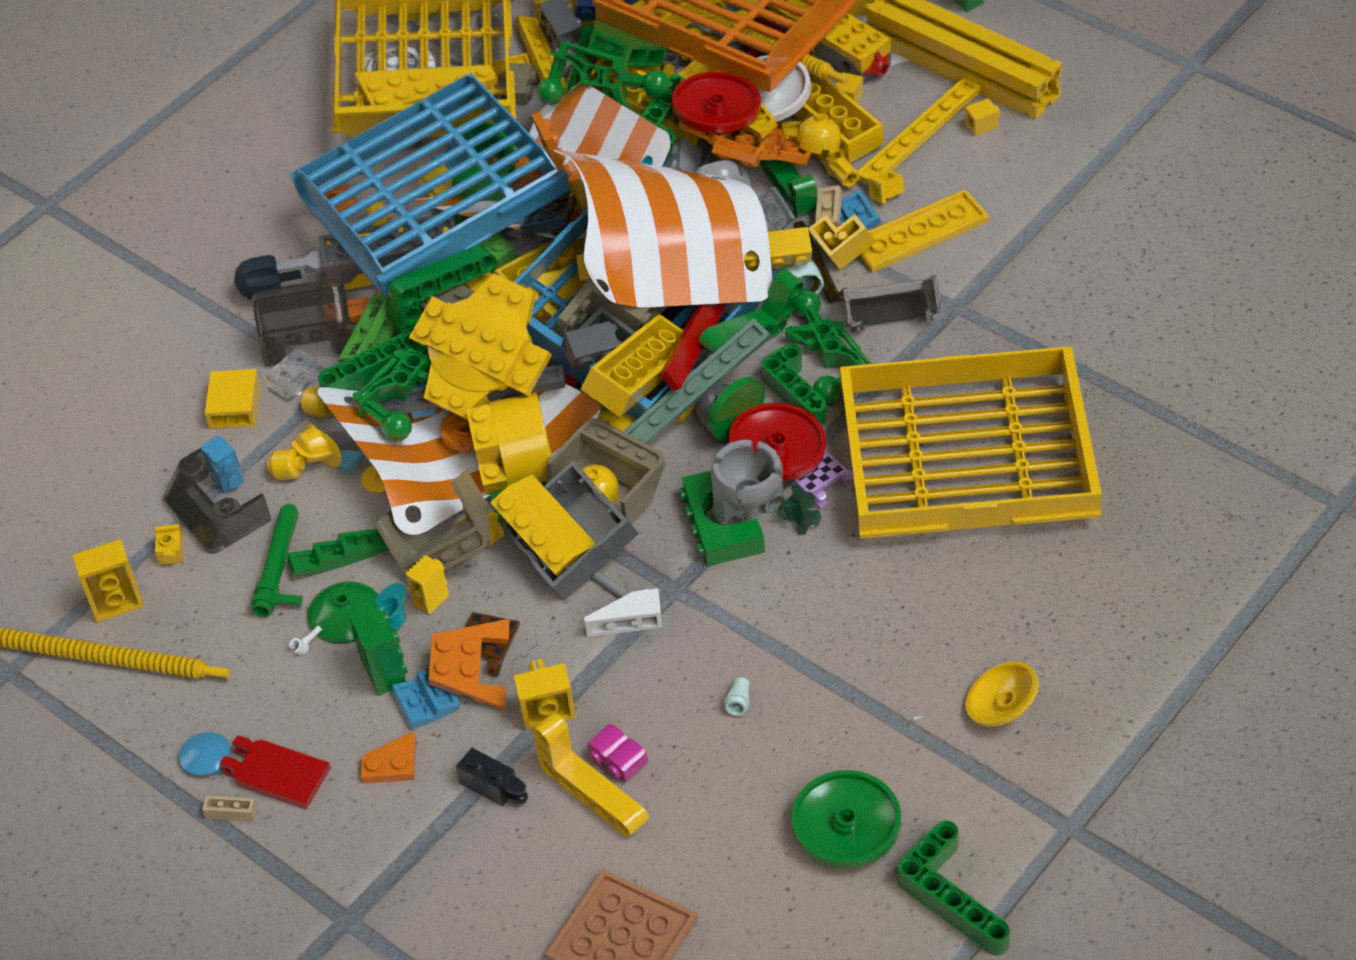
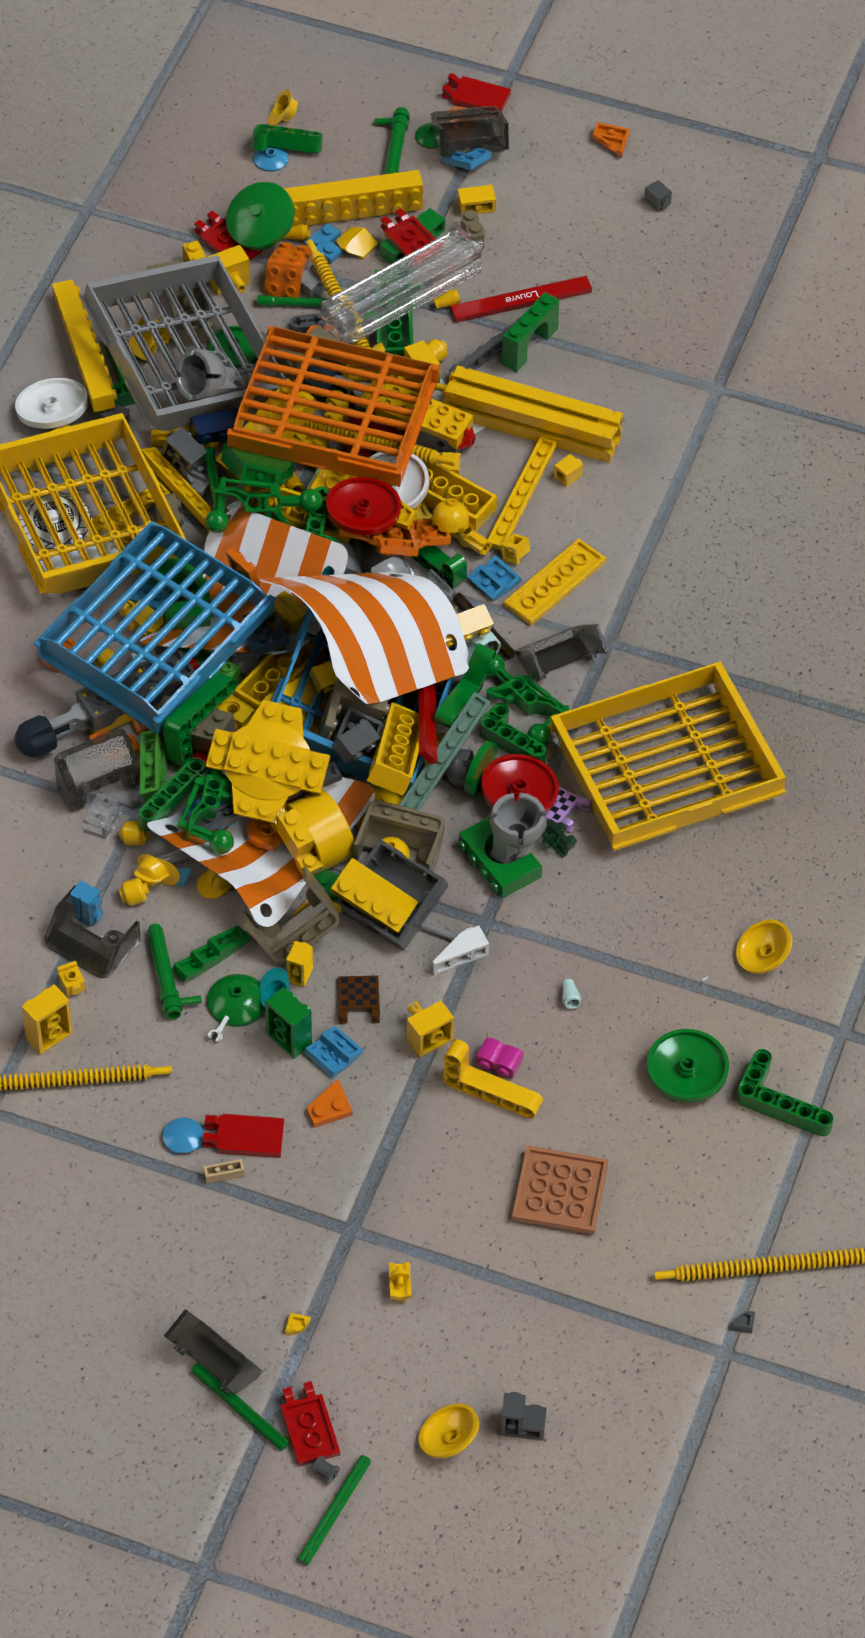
camera: 25 degrees left, 5 degrees up
(232, 398) = (61, 846): yellow brick -> none
(413, 85) = (91, 536): yellow wing -> none
(457, 658) = (350, 1019): orange wing -> none
(491, 778) = (415, 1100): black hinge -> none
(829, 204) = (479, 577): tan plate -> none
(844, 242) = (503, 607): yellow brick -> none

